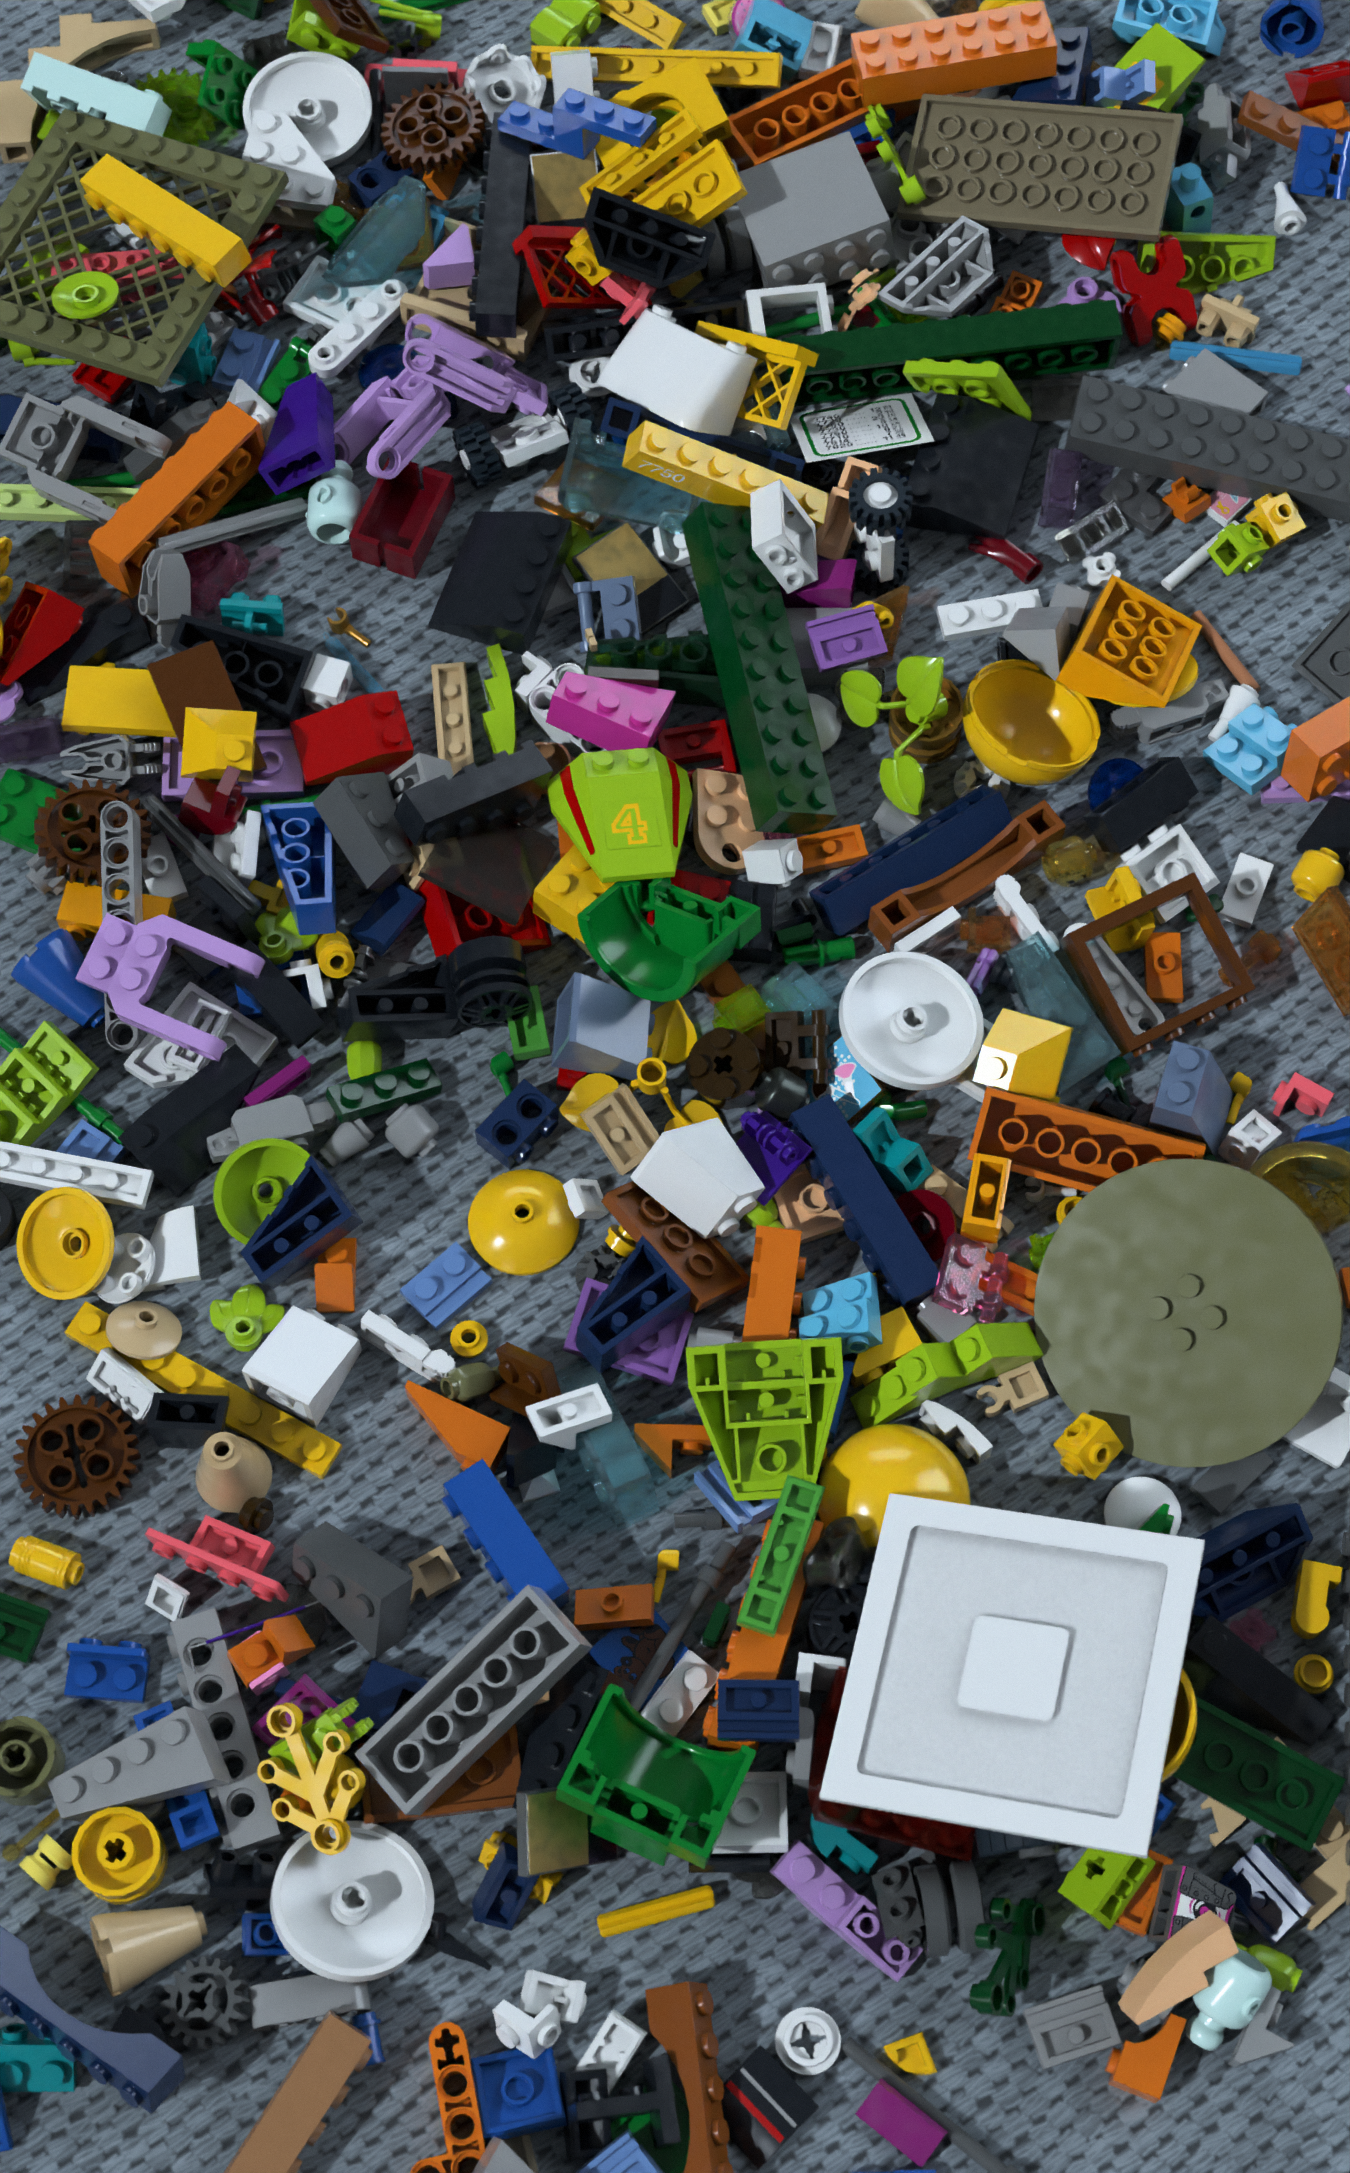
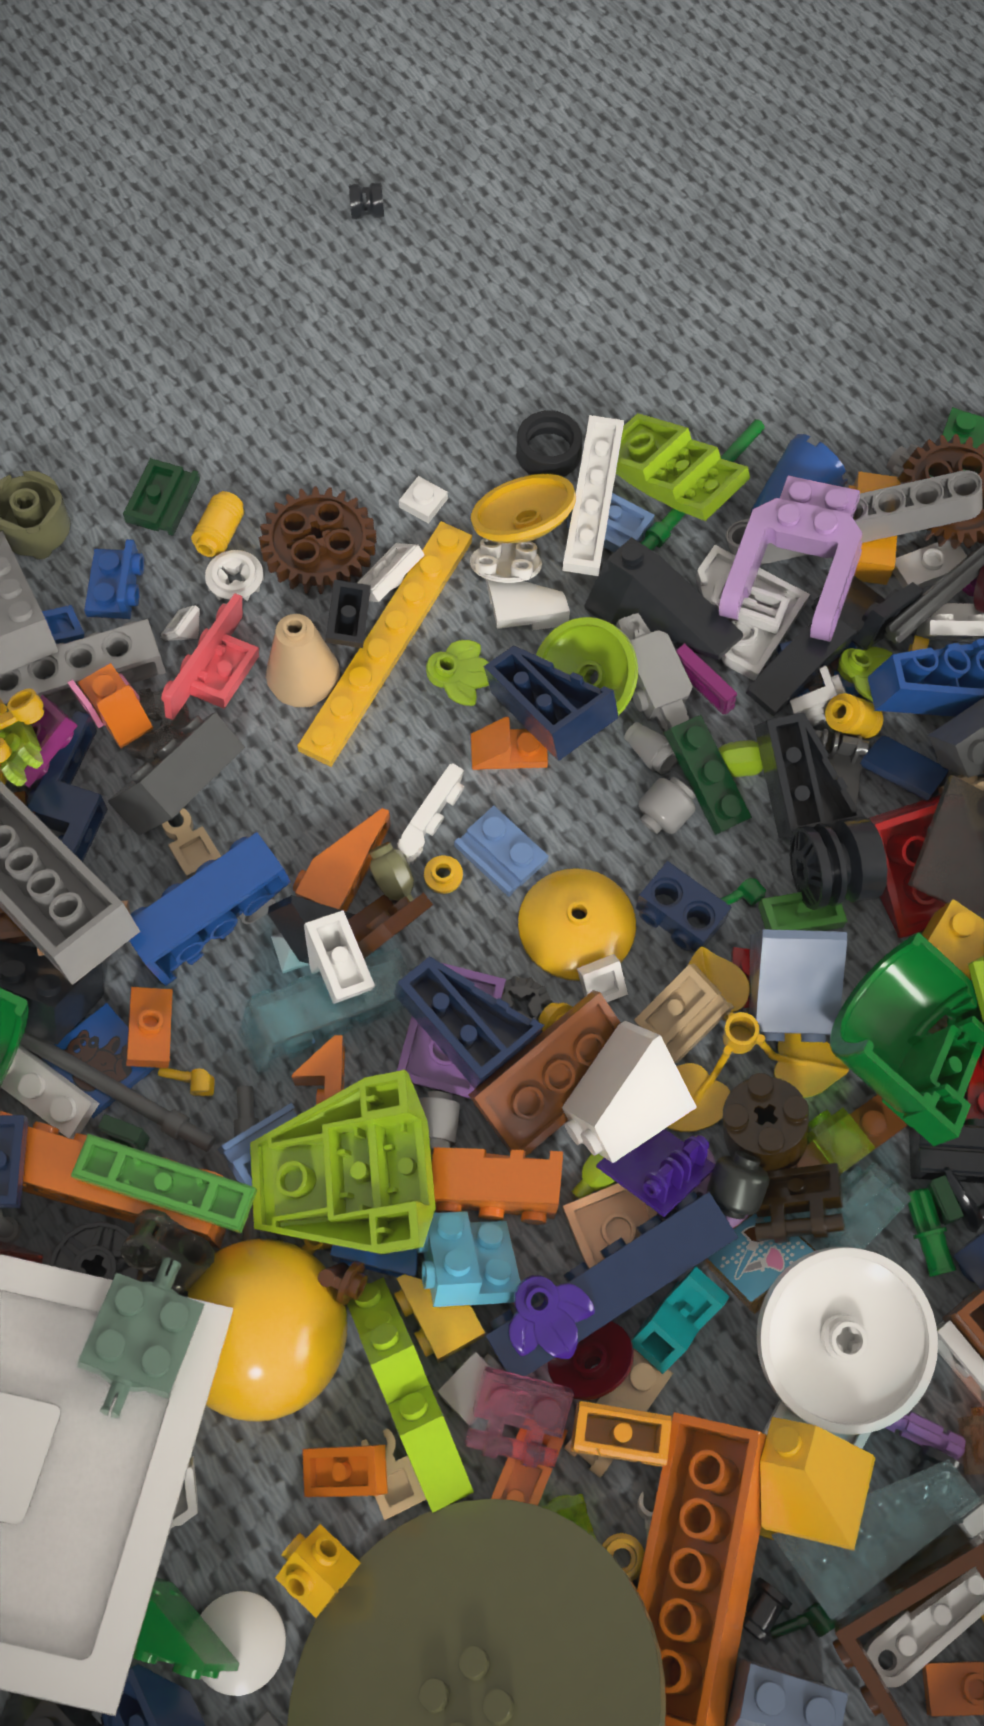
camera: 85 degrees right, 0 degrees up
(31, 1351) = (423, 499): none -> white plate
(109, 1528) = (231, 563): none -> white gear
(143, 1330) = (432, 590): tan dish -> none
(250, 1627) = (137, 683): dark purple piece -> none
(256, 1515) = (258, 691): dark brown plate -> none
(302, 1364) = (406, 715): white slope -> none
(815, 1673) = (42, 1223): white panel -> none
(858, 1416) = (348, 1280): none -> reddish brown plate
(897, 1244) = (553, 1321): none -> dark purple plate
(904, 1110) = (737, 1334): green arm -> none
(916, 1556) = (140, 1336): none -> sand green plate
(946, 1423) = (348, 1387): white slope -> none
(1012, 1423) = (345, 1471): none -> orange plate

